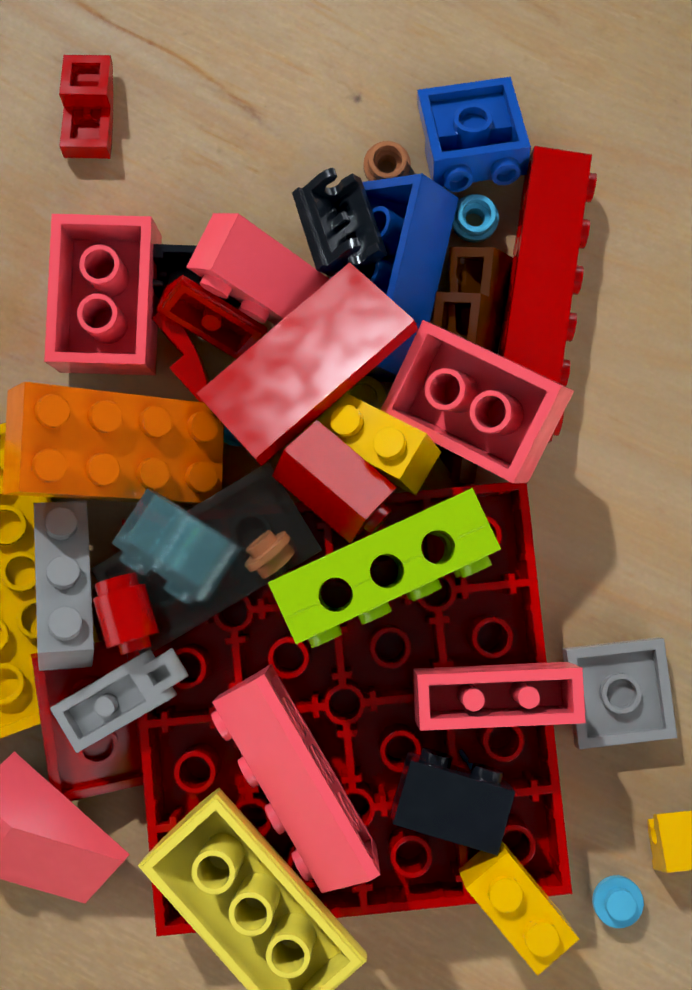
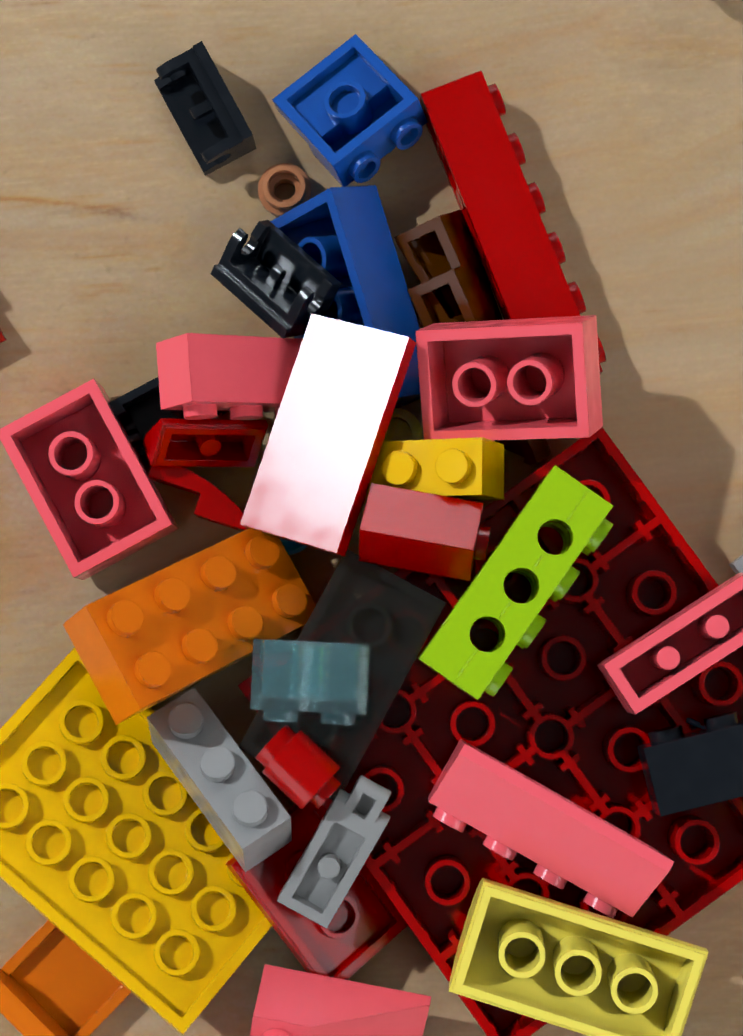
camera: 20 degrees left, 0 degrees up
(269, 553) = (400, 634): nougat plate -> none
(361, 67) = (204, 109): none -> black hinge
(477, 205) = (410, 179): medium azure plate -> none

